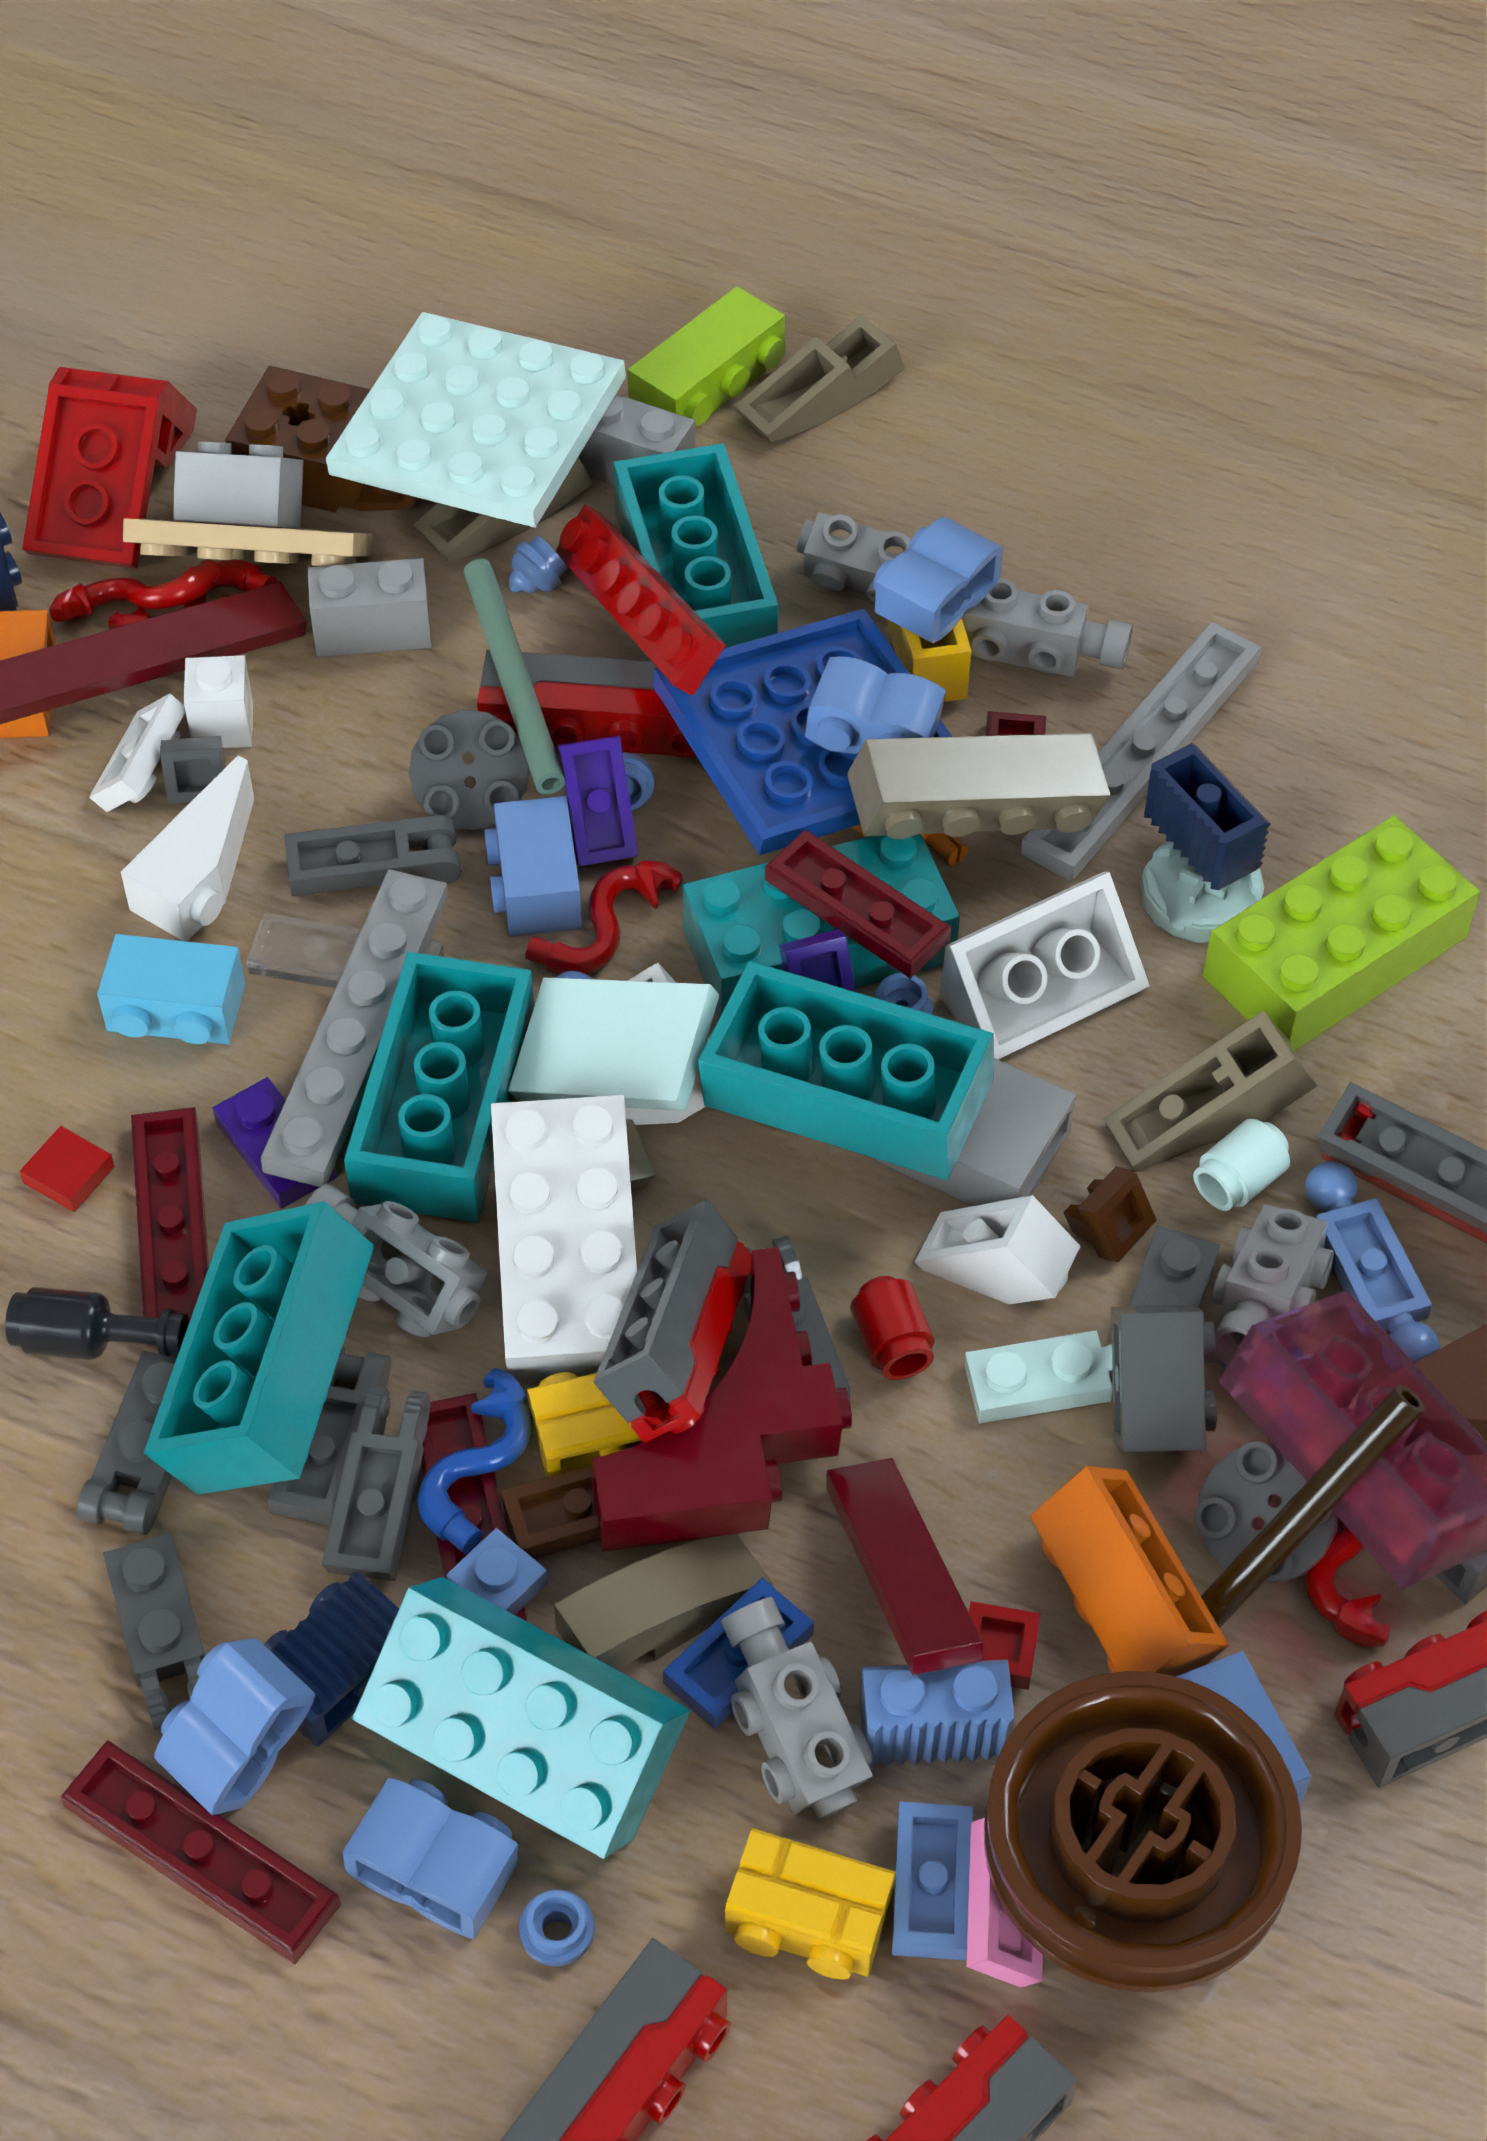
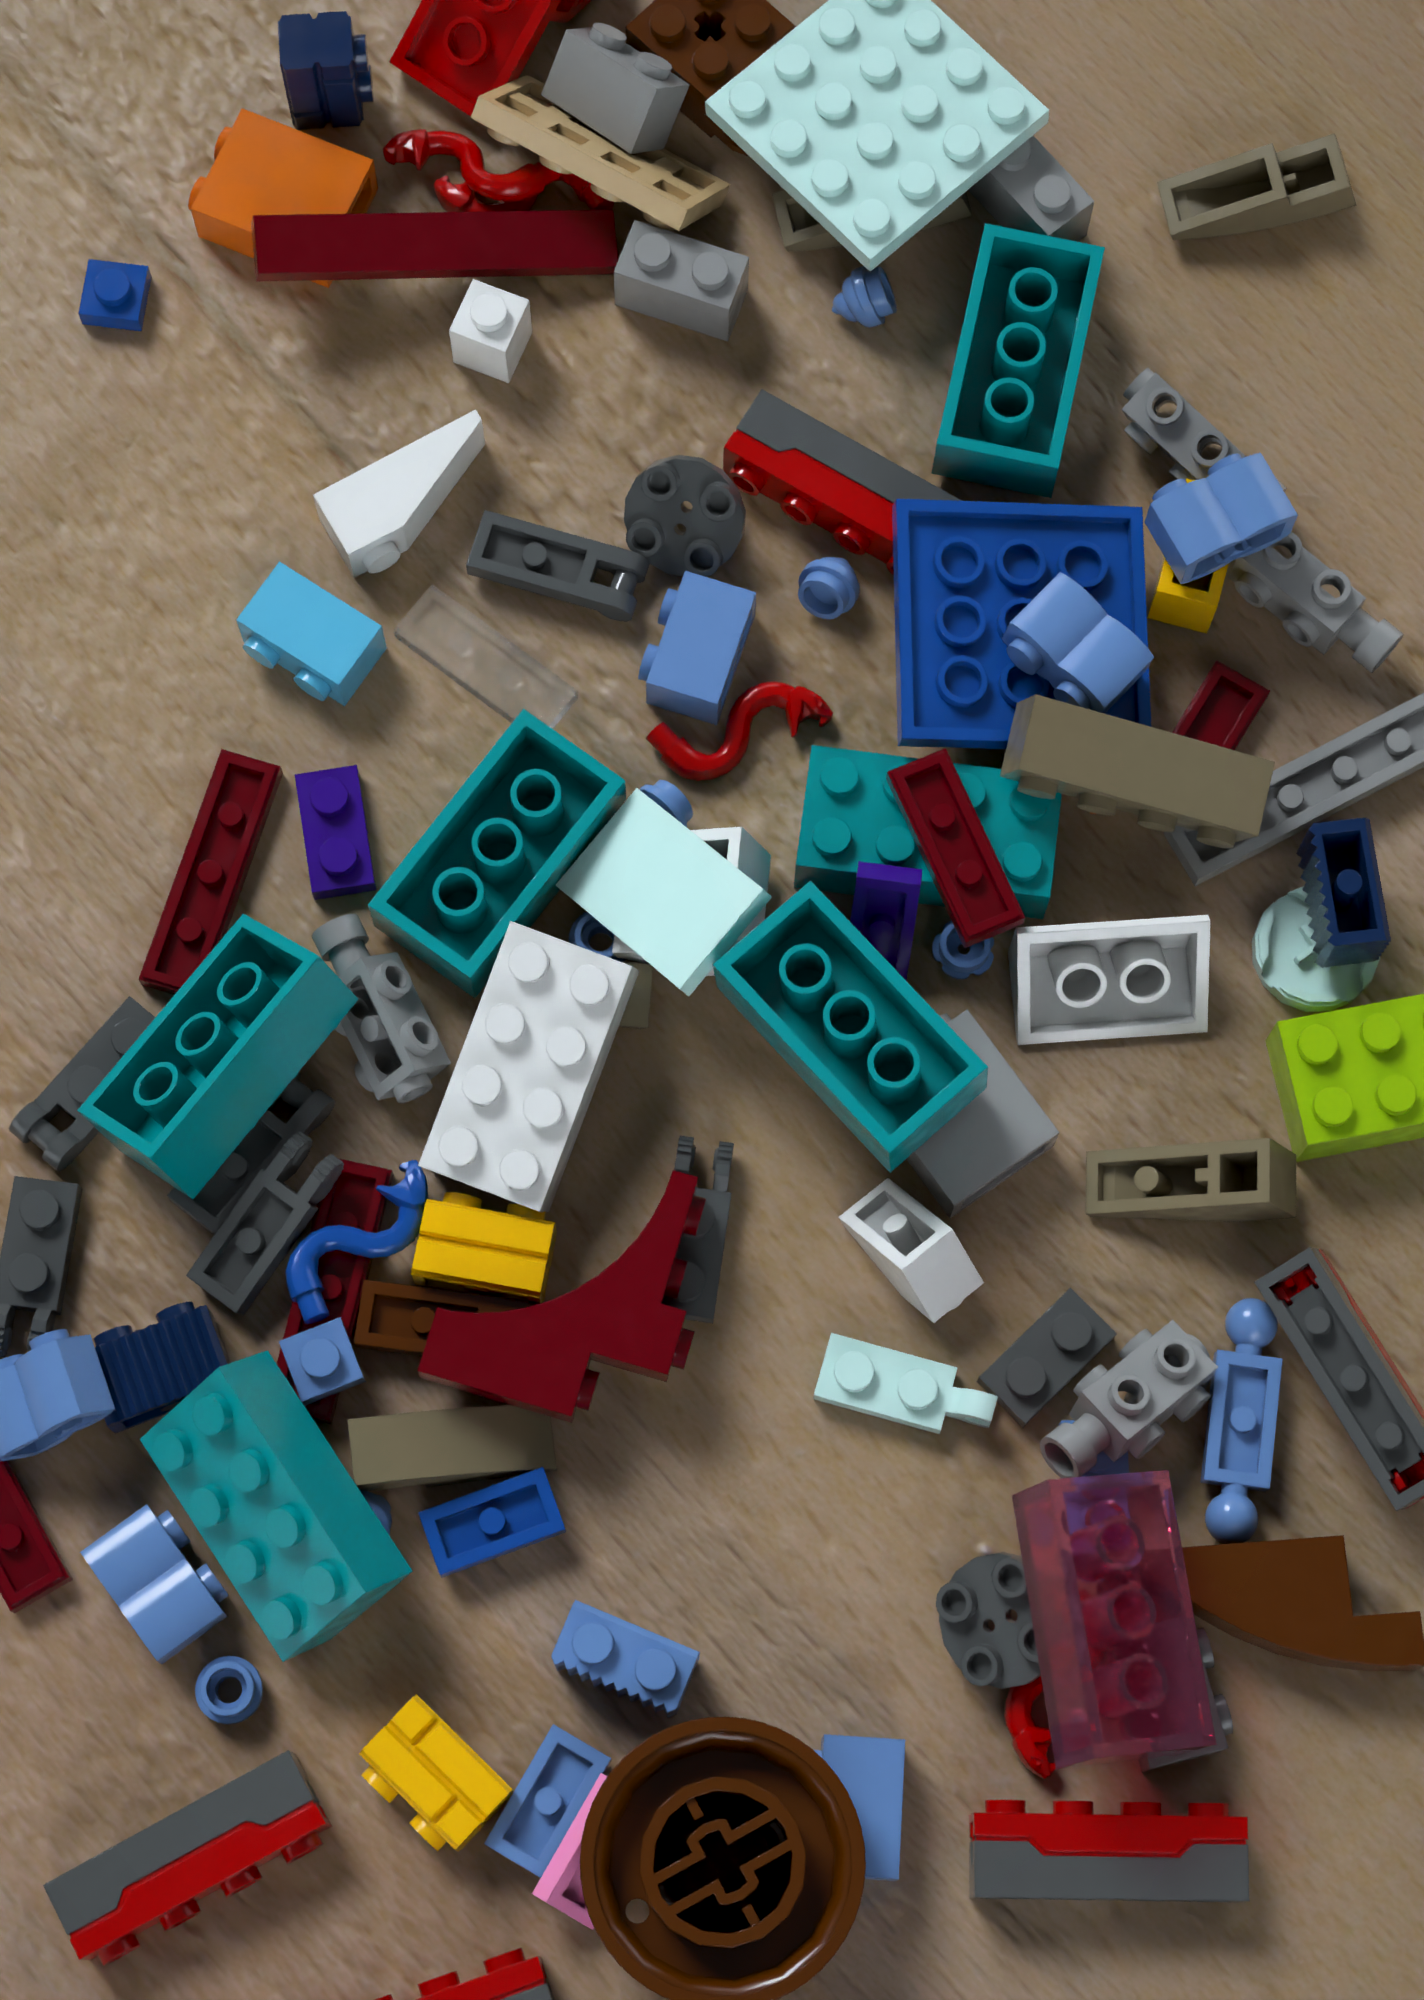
camera: 25 degrees right, 20 degrees up
(67, 1168) = (145, 777): red tile -> none
(82, 1325) = (88, 949): black piece -> none
(131, 766) = (408, 342): white plate -> none
(190, 766) = (434, 395): dark grey plate -> none
(346, 1042) = (438, 765): light grey plate -> none
(514, 677) = (768, 436): sand green piece -> none
(598, 800) = (785, 606): dark purple plate -> none
(639, 599) = (924, 406): red plate -> none
(675, 1323) = (572, 1208): dark grey piece -> none
(710, 357) = (1156, 118): lime brick -> none
(795, 1726) = (504, 1626): light grey brick -> none
(893, 1327) = (779, 1279): red brick -> none
(904, 1567) = (660, 1520): dark red tile -> none
(1008, 1636) = (713, 1622): red plate -> none
(1112, 1214) = (1037, 1259): reddish brown tile -> none
(1126, 1575) = (848, 1623): orange brick -> none
(1161, 1378) = (977, 1450): dark grey brick -> none
(1242, 1164) = (1181, 1264): light aqua brick -> none
(1312, 1502) = (1001, 1664): dark brown piece -> none

